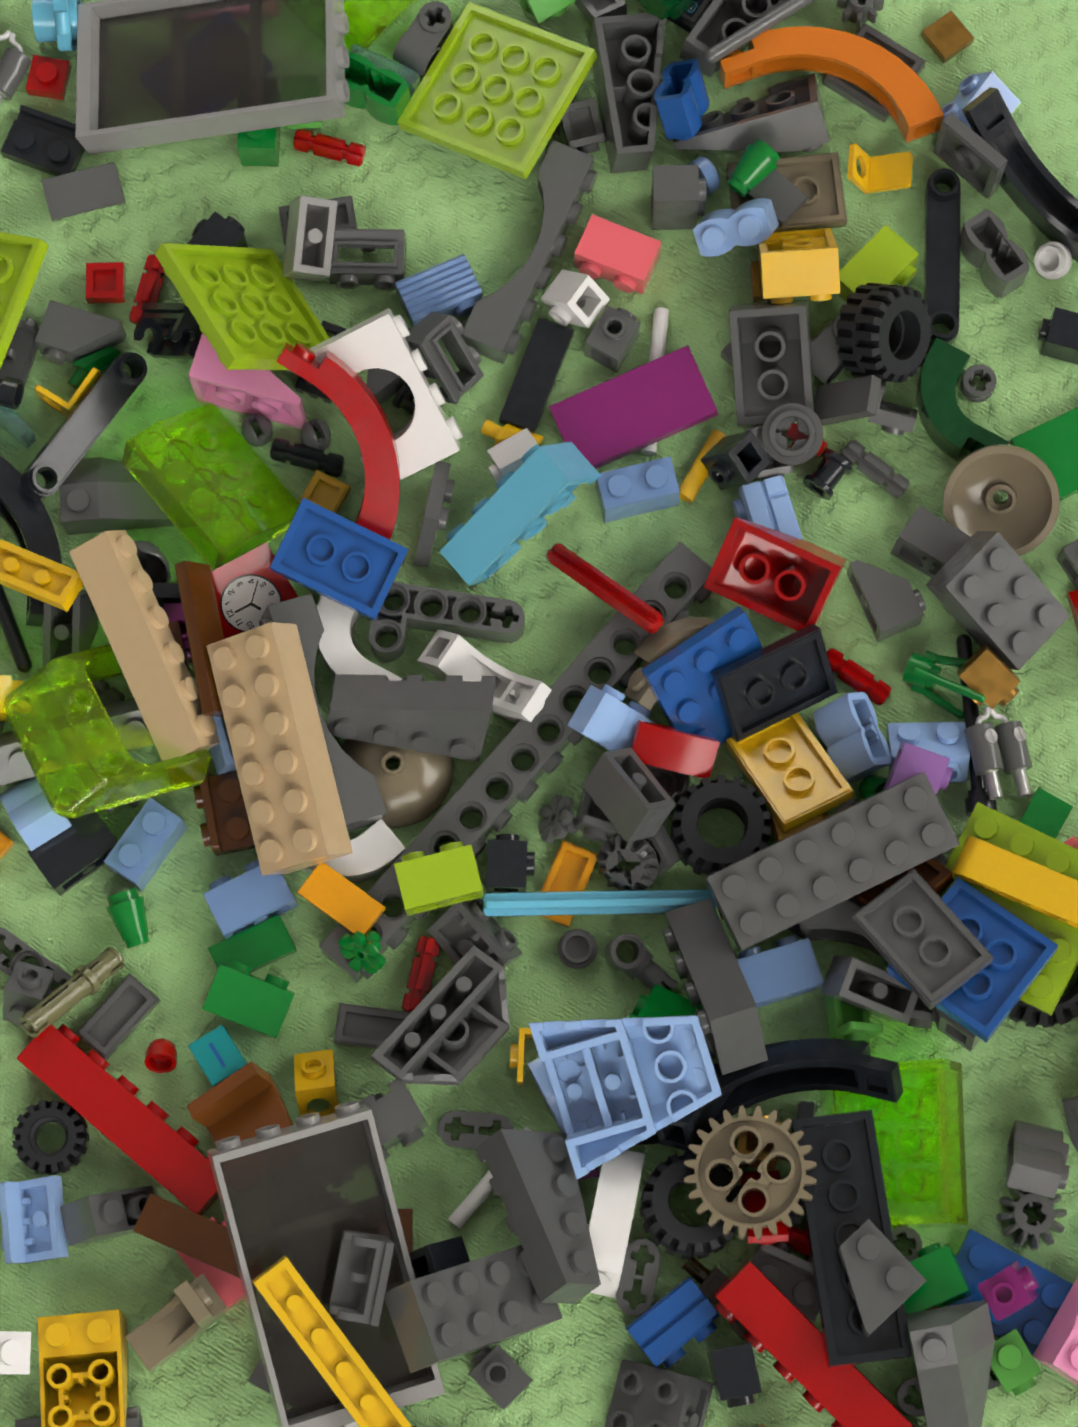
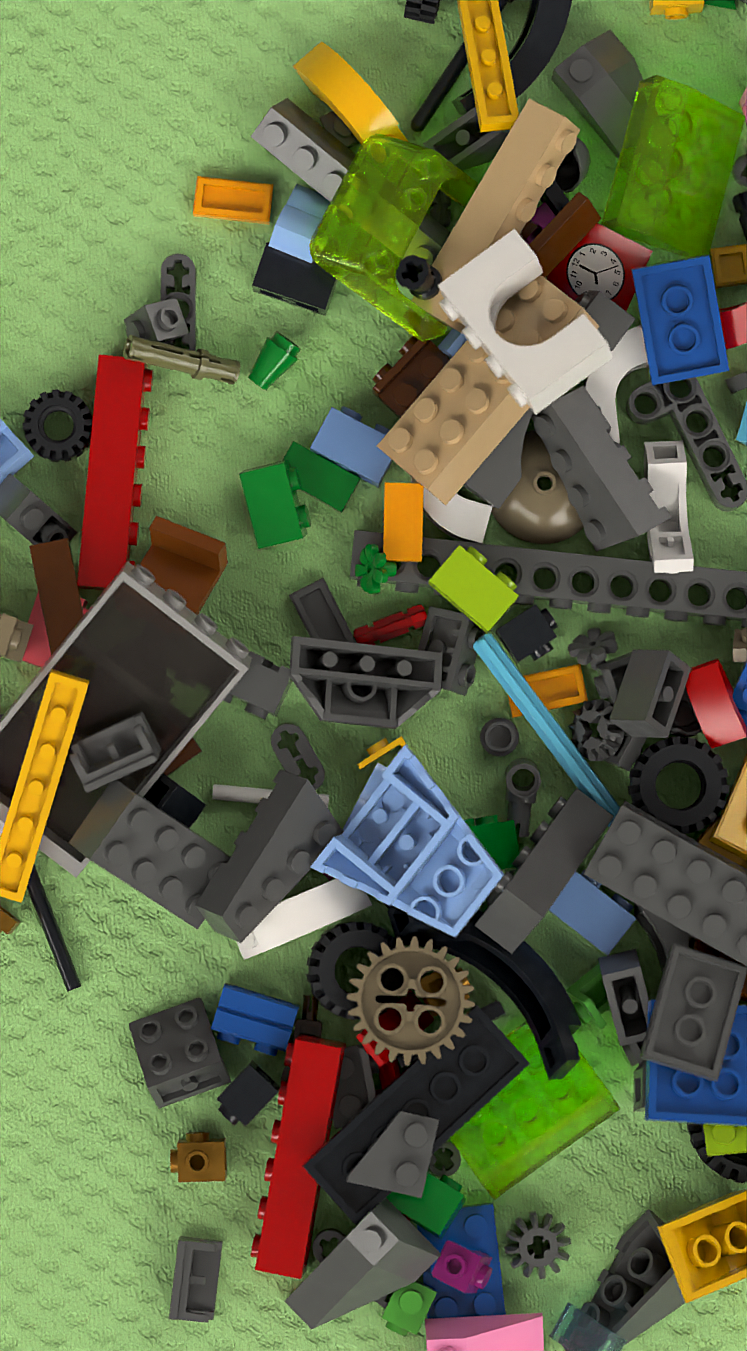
camera: 50 degrees right, 10 degrees up
(84, 425) = (648, 27): black piece -> none
(118, 1016) = (190, 409): dark grey tile -> none
(145, 844) = (340, 331): medium blue brick -> none
(160, 741) = (418, 277): none -> black bush
(161, 1056) = (182, 466): red hinge -> none
(217, 1055) = (213, 512): teal brick -> none
(296, 694) = (536, 371): none -> white arch
(315, 1080) = (247, 602): yellow bracket -> none
(499, 1375) = (119, 910): dark grey brick -> none
(606, 719) = (702, 633): light blue brick -> none
(648, 1279) = (276, 975): dark grey beam -> none
(1036, 1159) = (583, 1220): dark grey brick -> none

